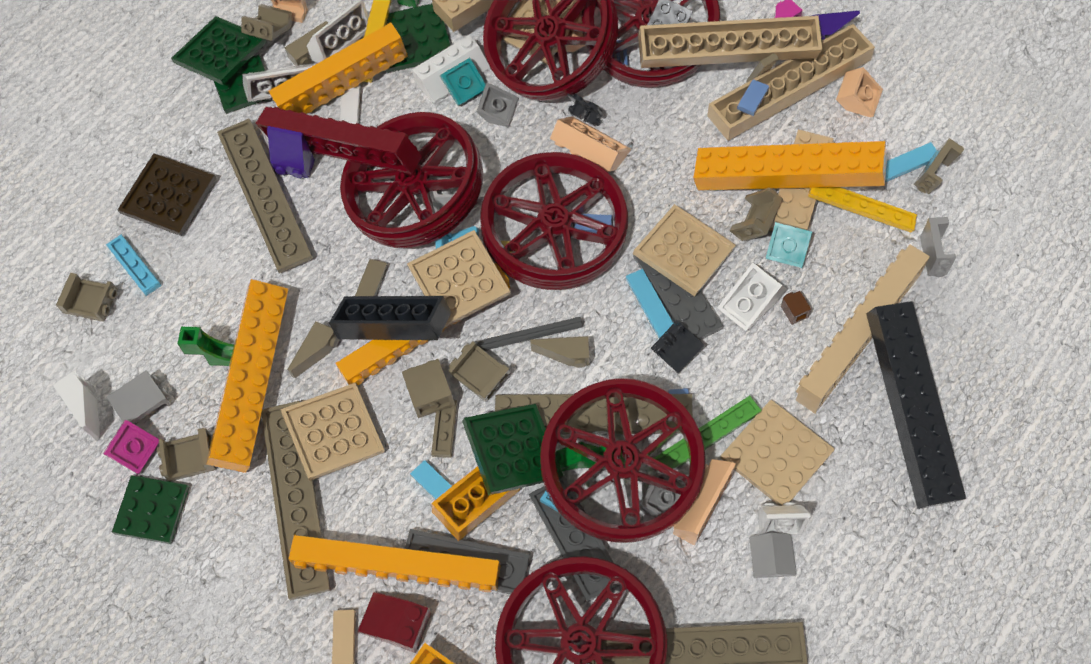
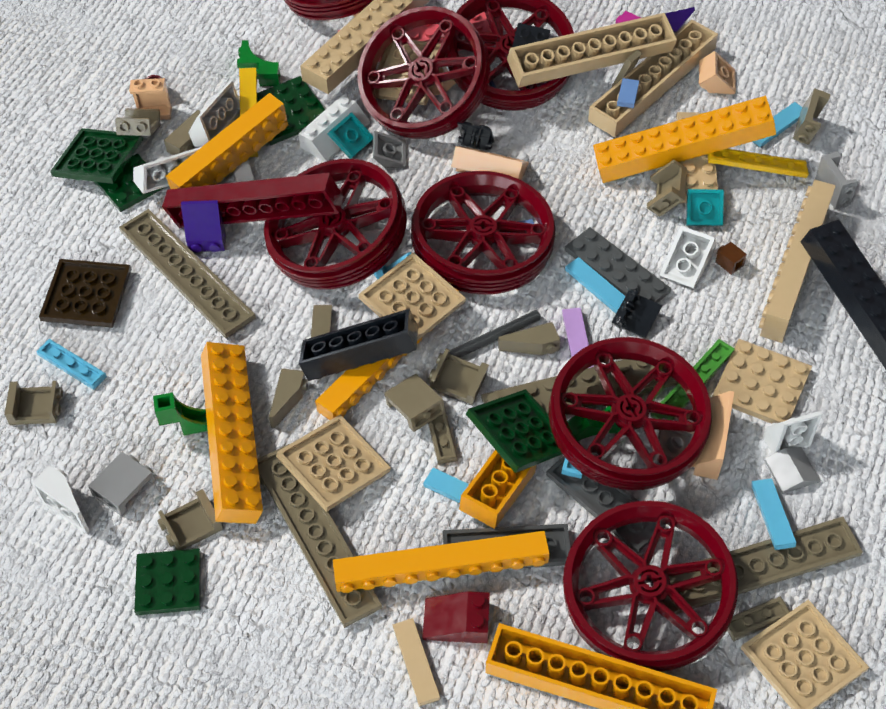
camera: 20 degrees left, 10 degrees down
(131, 447) = (130, 526): dark pink plate -> none
(610, 352) = (575, 330): none -> lavender tile
(684, 249) = (612, 231): tan plate -> none
(733, 600) = (773, 514): none -> medium azure tile

